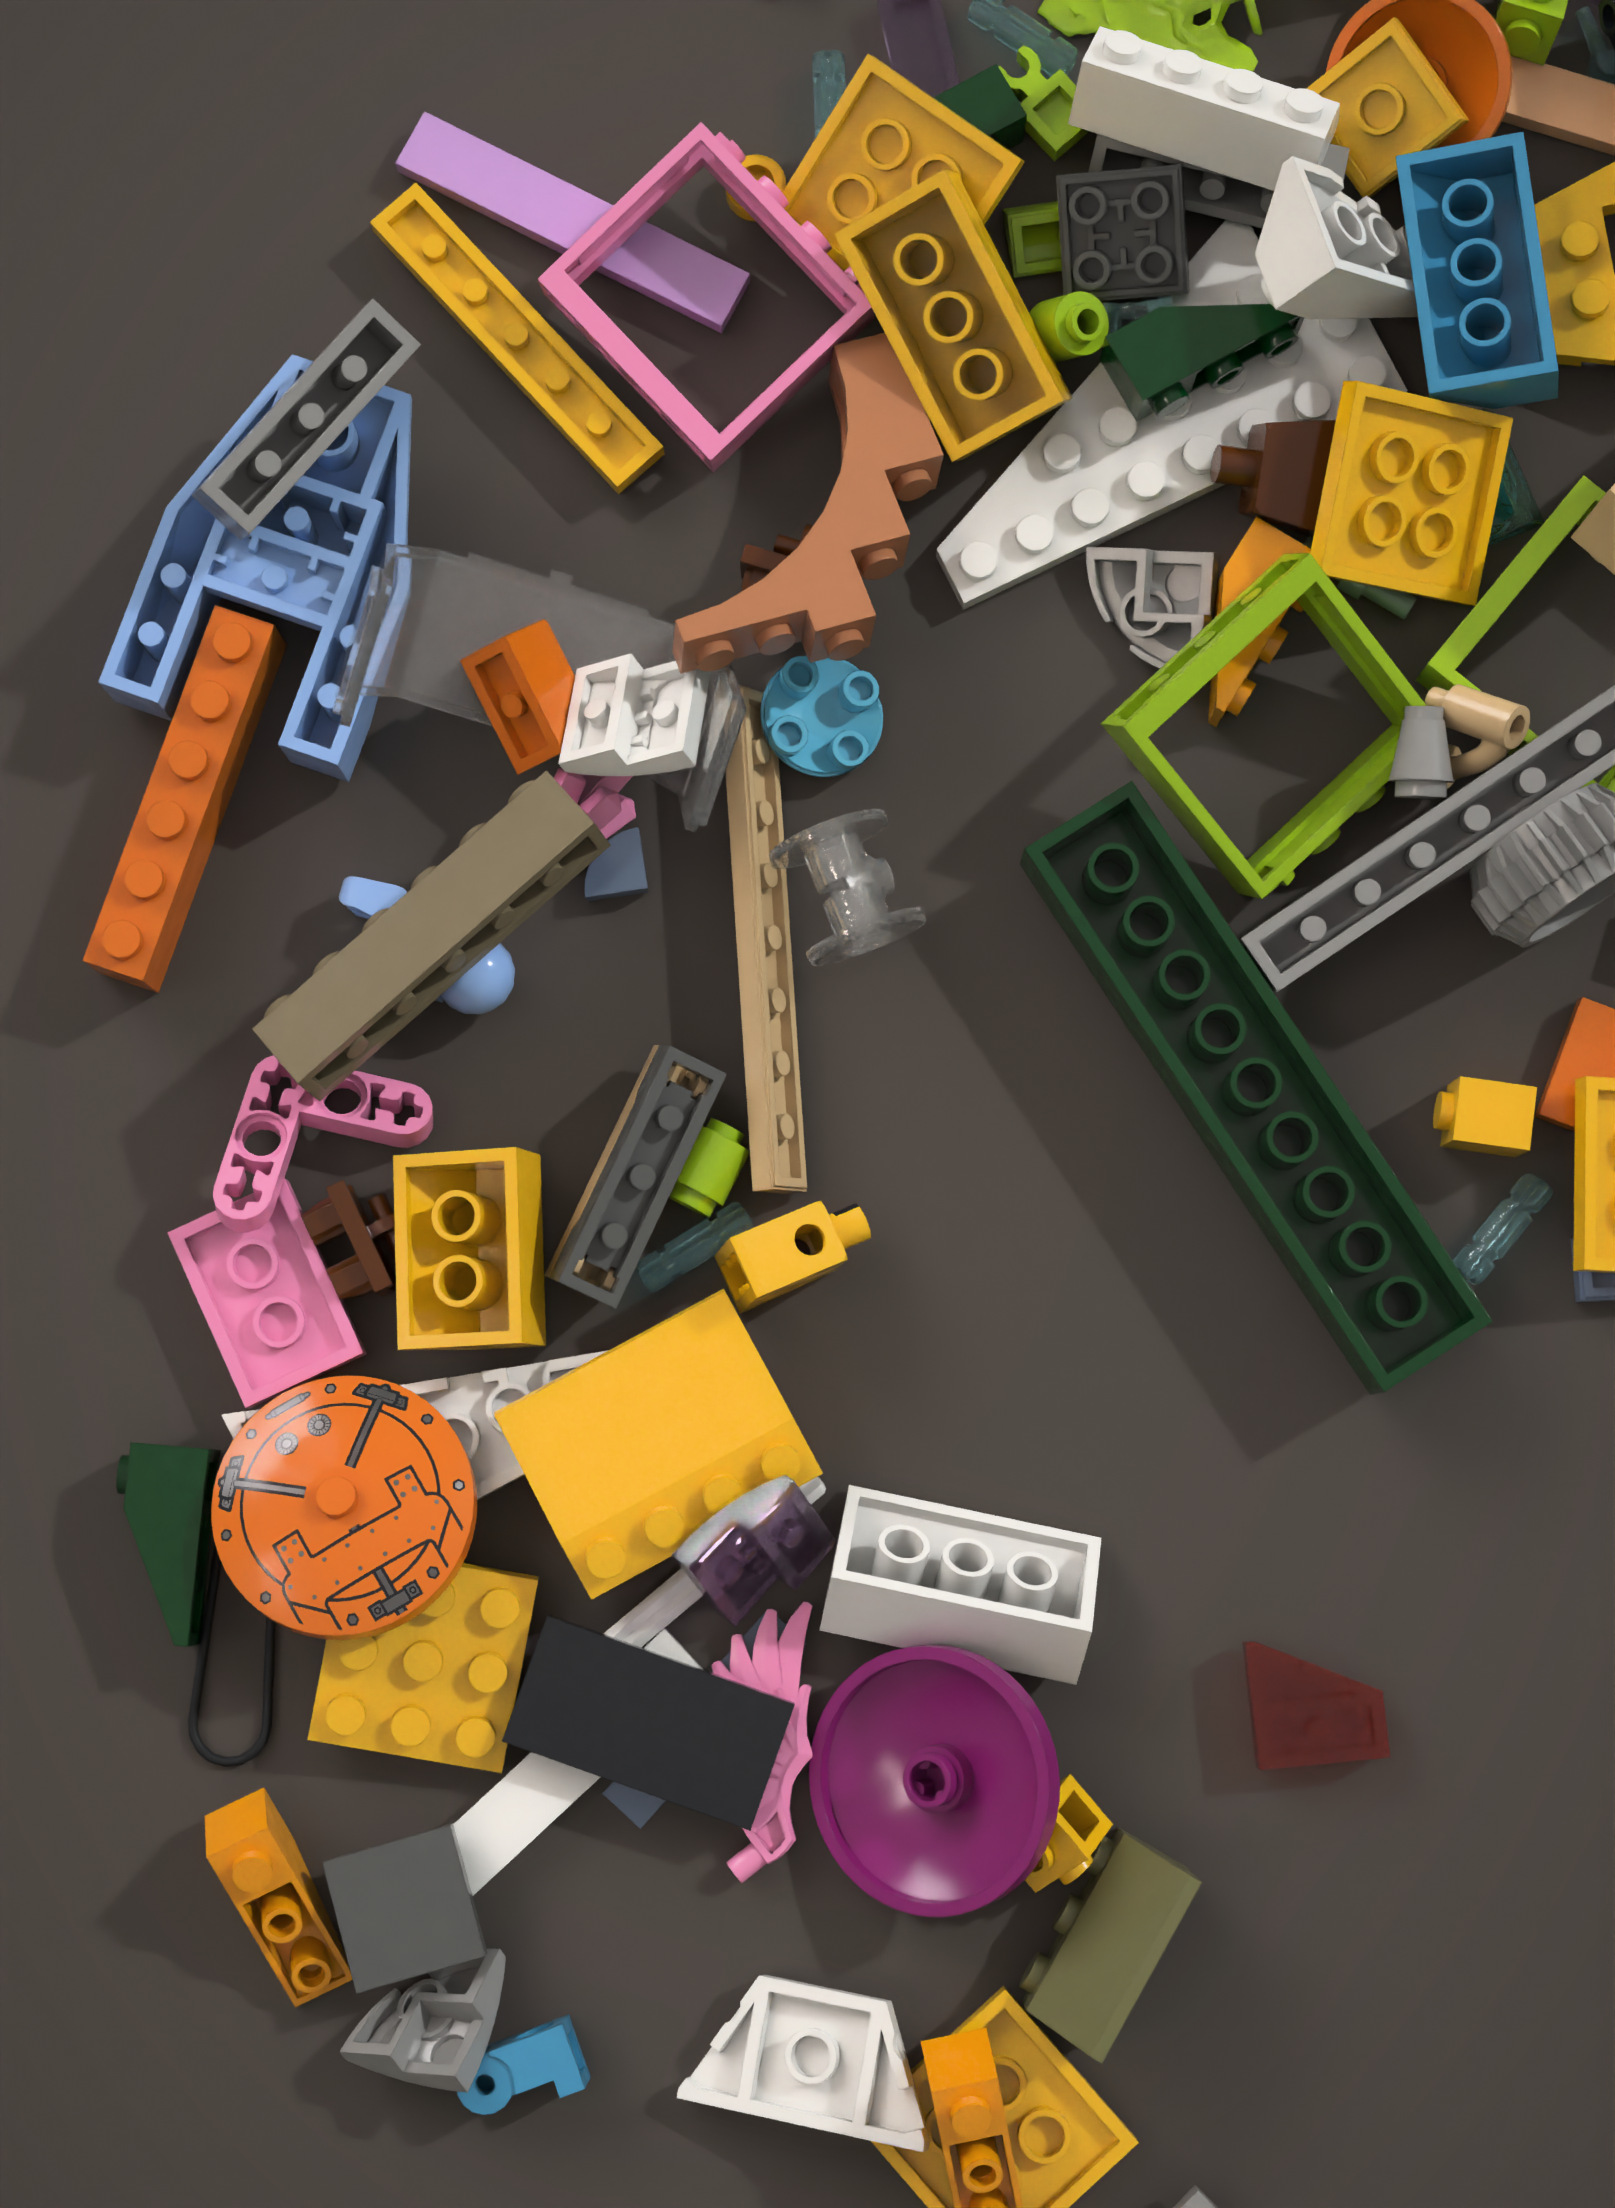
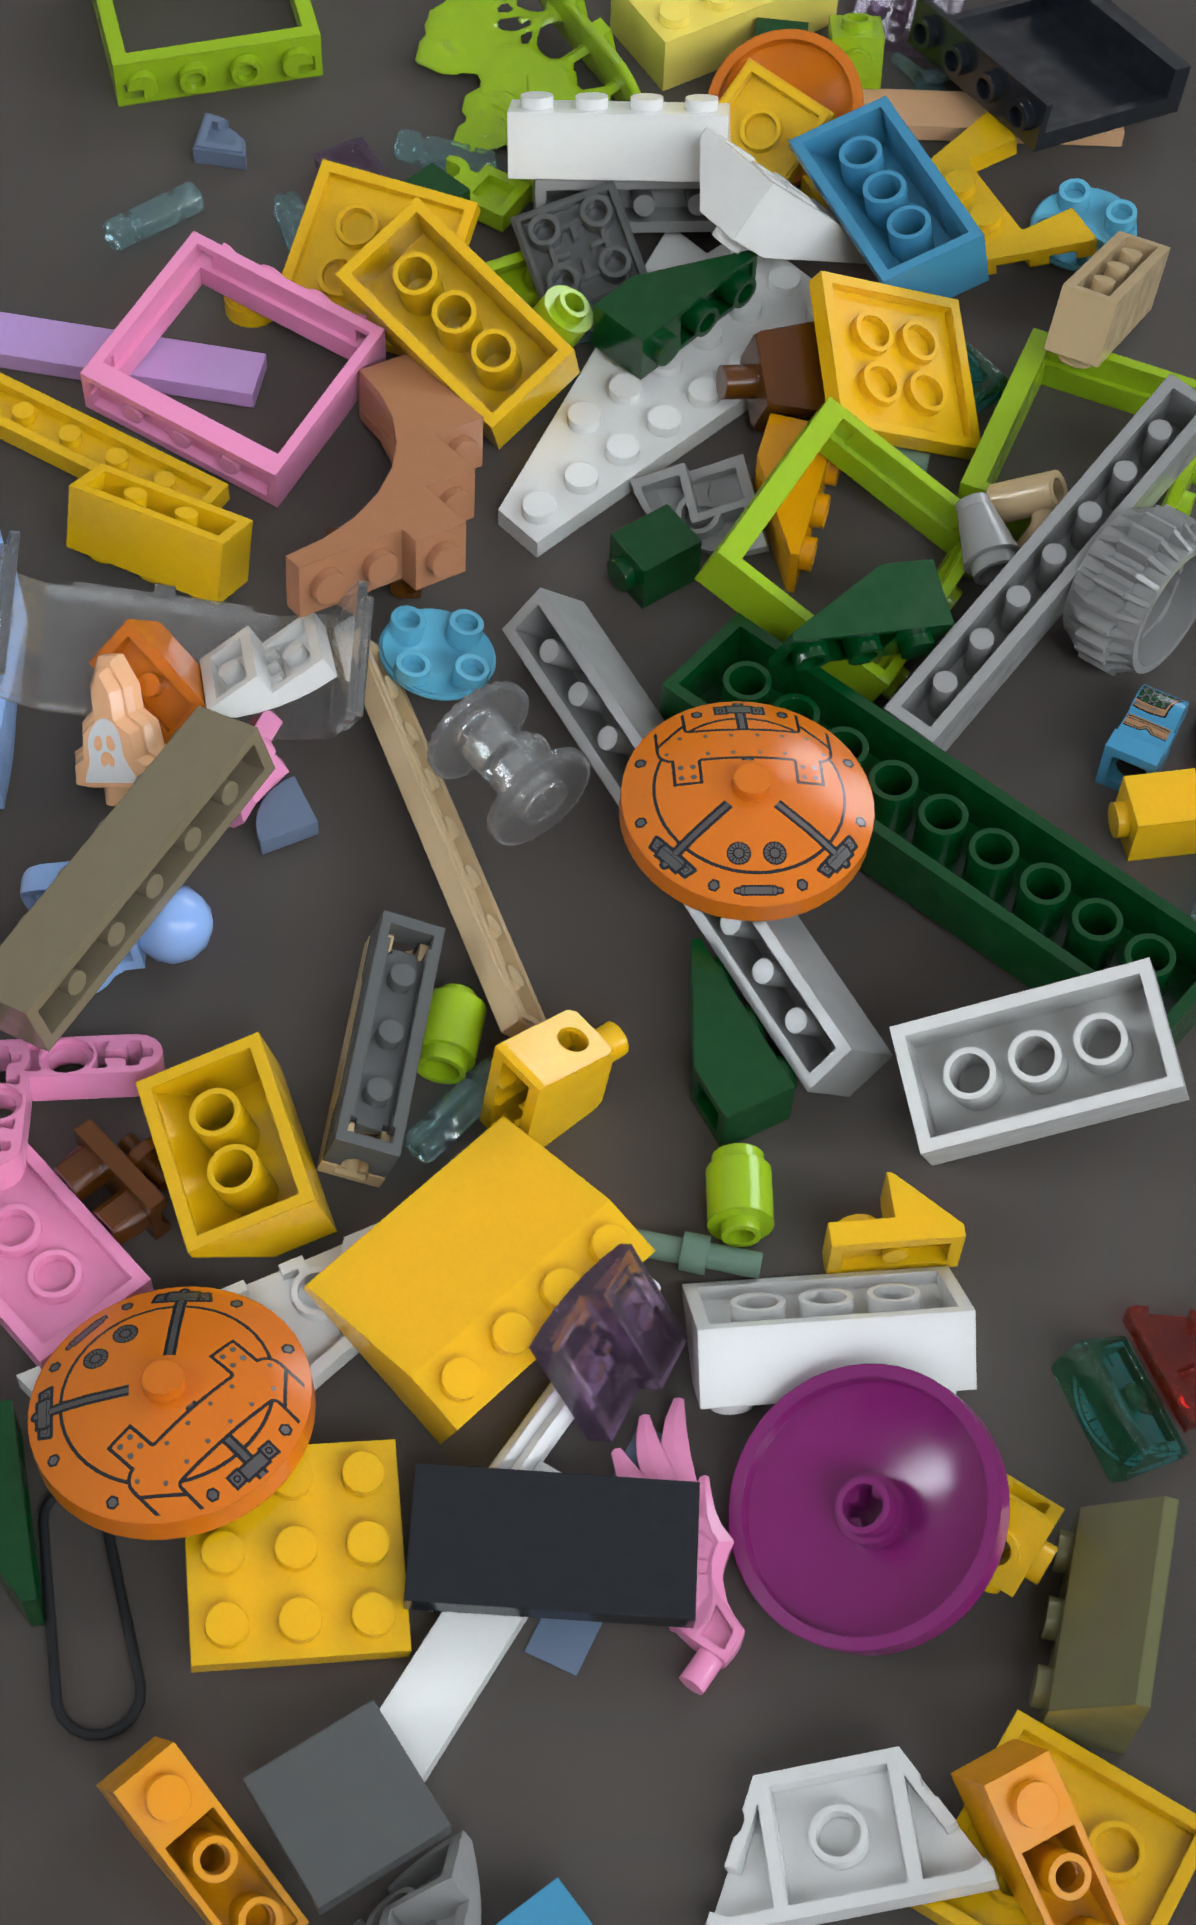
camera: 20 degrees left, 25 degrees down
(472, 755) = (118, 733): none -> light nougat rock
(574, 498) = (158, 533): none -> yellow brick
(679, 41) = (153, 216): none -> clear light blue axle
(869, 1461) = (696, 1253): none -> sand green bar
(927, 1418) = (739, 1195): none -> lime brick
(962, 1276) = (732, 1069): none -> dark green slope
(1004, 1018) = (770, 961): none -> light grey brick
(1057, 1032) = (746, 811): none -> orange dish
(1074, 1505) = (908, 1235): none -> yellow slope
(1077, 657) = (653, 556): none -> dark green brick
(1207, 1725) = (1118, 1408): none -> clear green slope
(1248, 1391) = (1038, 1062): none -> white brick
(1263, 831) = (883, 614): none -> dark green slope
(1506, 1022) = (1143, 735): none -> dark azure leg

